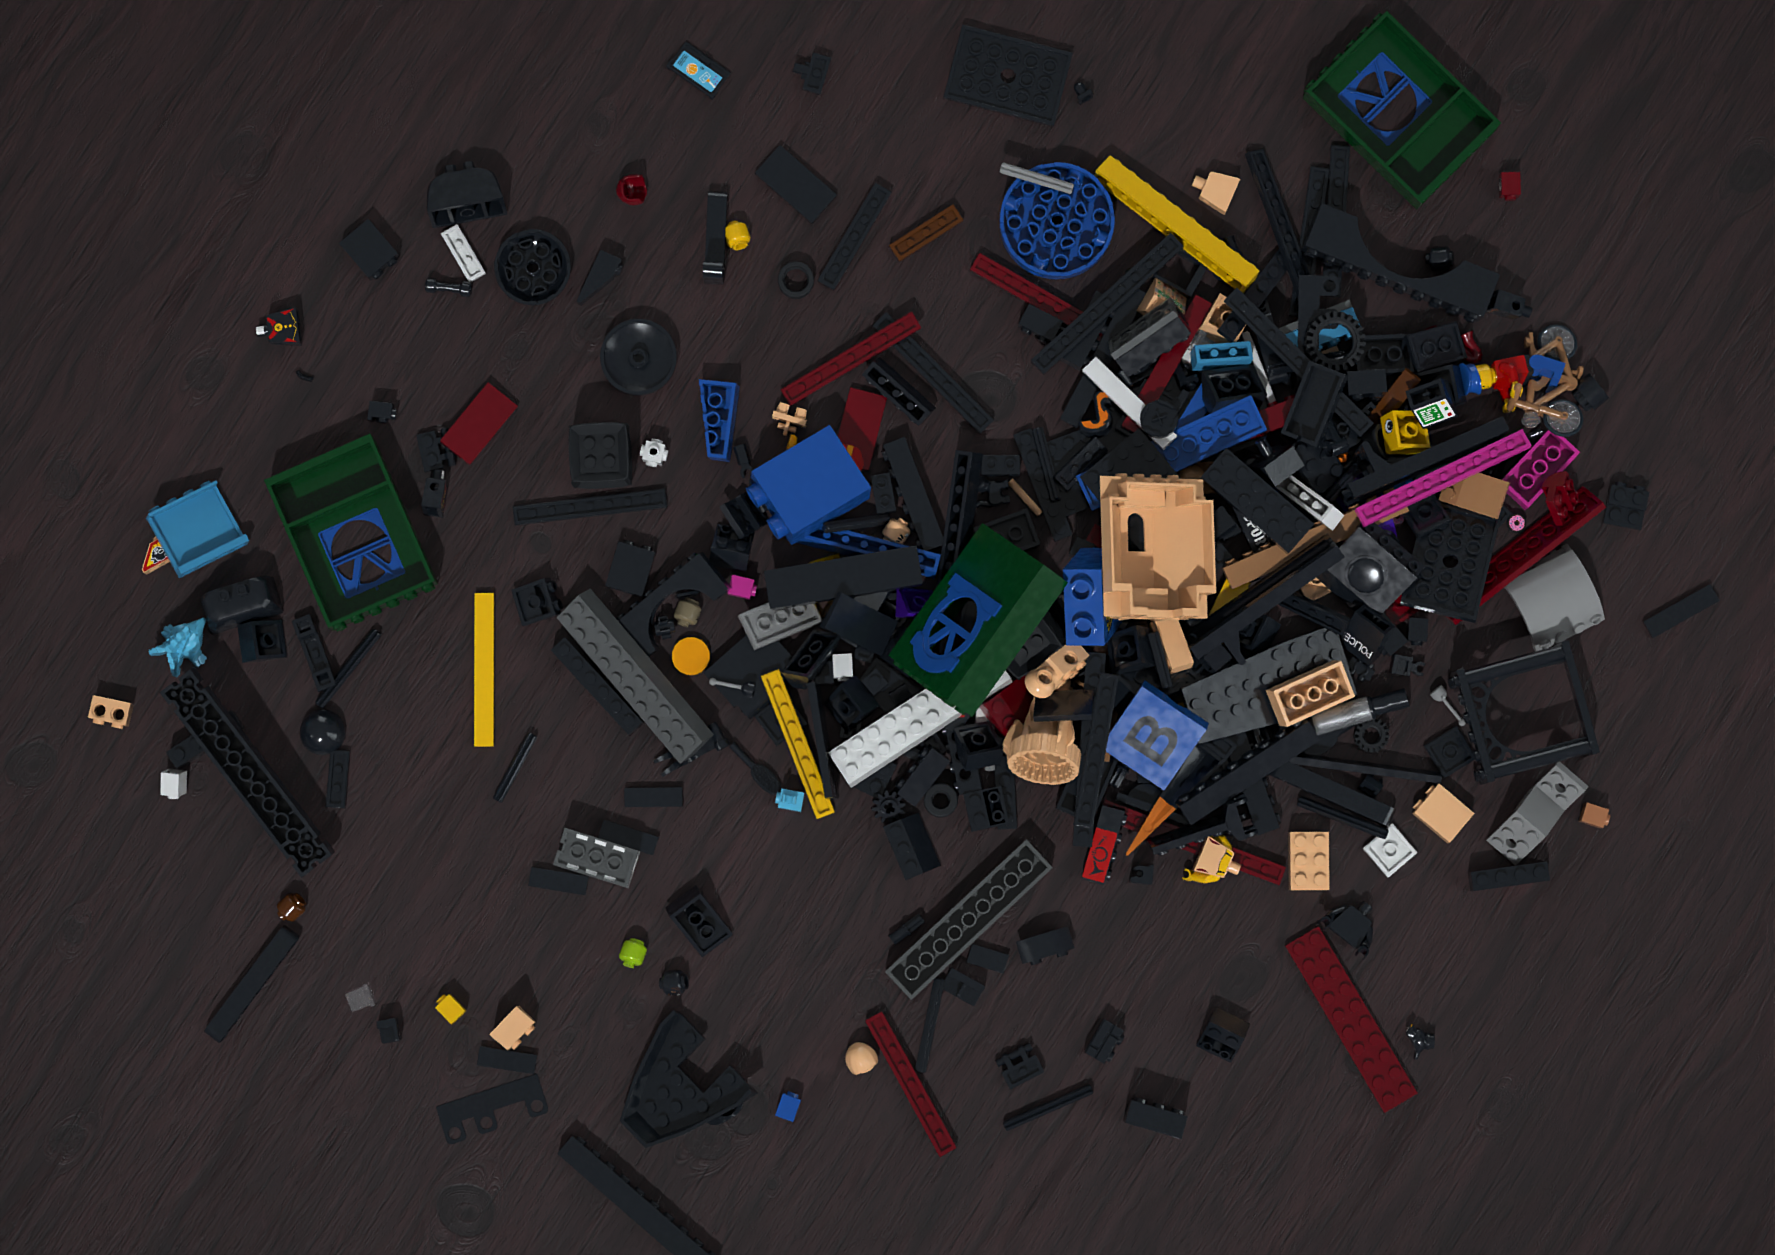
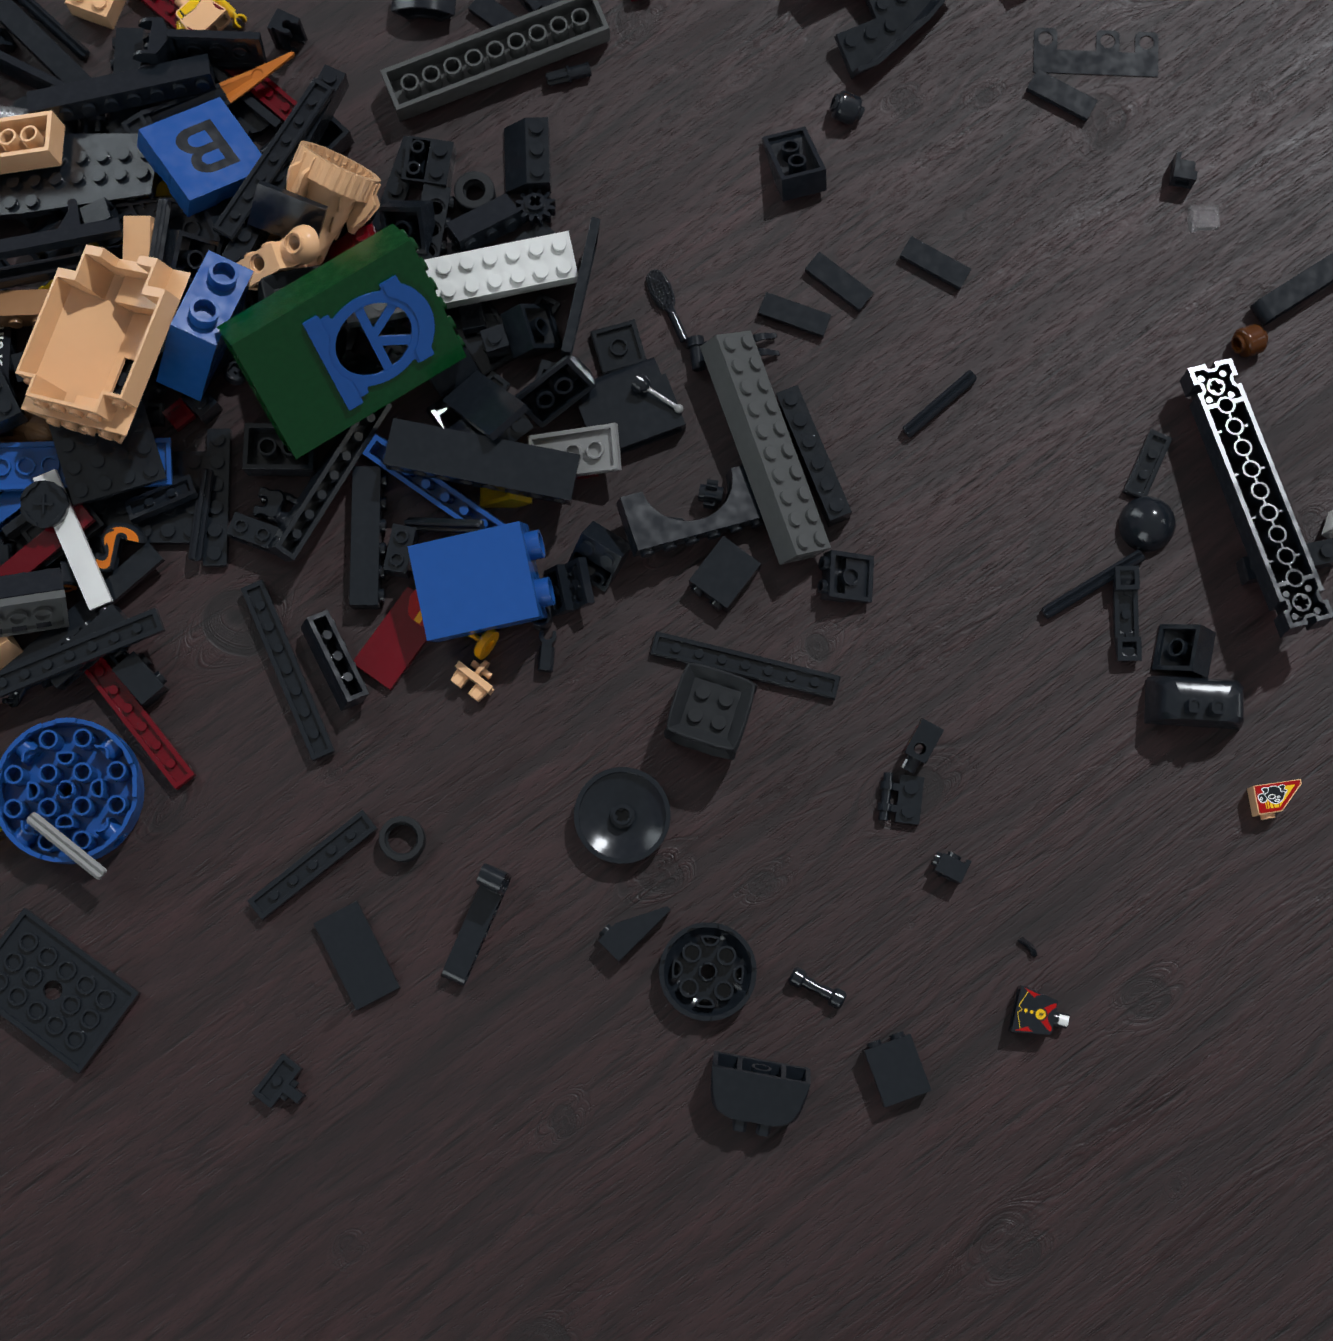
camera: 155 degrees left, 5 degrees down
(181, 643) = (1279, 680): medium azure piece -> none
(196, 529) = (1220, 807): dark azure panel -> none
(326, 495) = (1048, 792): dark green panel -> none
(450, 1008) = (1106, 168): yellow brick -> none
(463, 253) = (784, 1023): white tile -> none
(478, 423) = (840, 809): dark red tile -> none
(484, 670) = (935, 525): yellow tile -> none
(513, 1028) = (1044, 122): light nougat slope -> none
(596, 858) = (884, 265): dark grey piece -> none
(632, 189) = (553, 1021): dark red hair -> none
(632, 952) = (880, 154): lime head -> none
(654, 460) = (646, 705): white brick -> none
(687, 612) = (678, 501): dark tan head -> none
(690, 656) = (693, 453): light orange tile -> none
(697, 72) = (422, 1146): door -> none
(719, 416) = (553, 714): blue wedge -> none
(737, 235) = (449, 918): yellow head -> none
(742, 587) = (603, 505): dark pink brick -> none
(790, 800) = (642, 253): medium azure brick -> none
(797, 743) = (610, 310): yellow tile -> none
(842, 667) = (523, 373): white brick -> none
(851, 358) = (374, 721): dark red tile -> none
(896, 531) = (404, 504): light nougat head -> none
(910, 601) = (416, 407): dark purple slope -> none
(926, 233) = (227, 837): reddish brown plate -> none
(1026, 499) = (243, 490): light nougat piece -> none
(1103, 844) = (330, 53): brick -> none

